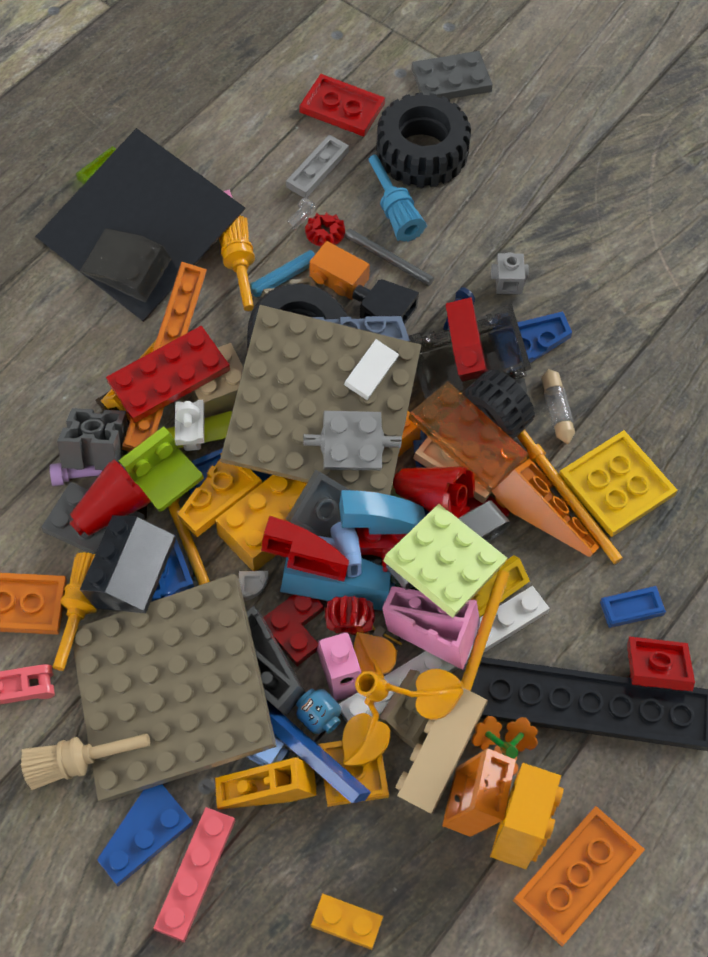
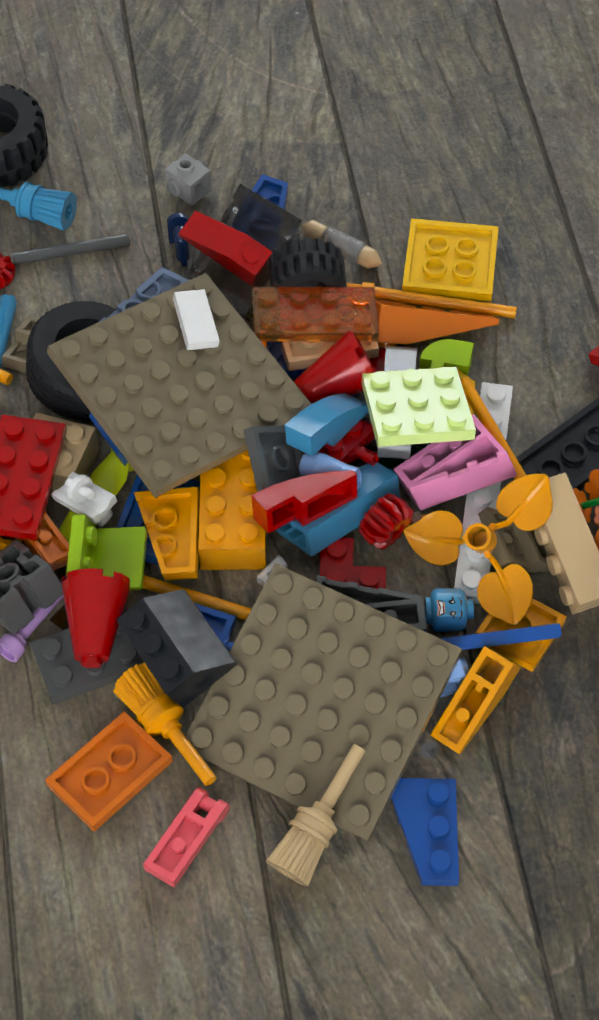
camera: 45 degrees left, 5 degrees down
(194, 874) = (503, 814): coral plate -> none
(338, 269) = (45, 288): orange brick -> none
(339, 662) = (423, 561): bright pink torso -> none
(352, 440) = (244, 385): light grey plate -> none
(386, 300) = (115, 279): black torso -> none
(527, 546) = (448, 354): none -> lime brick
(632, 606) = (563, 334): blue tile -> none

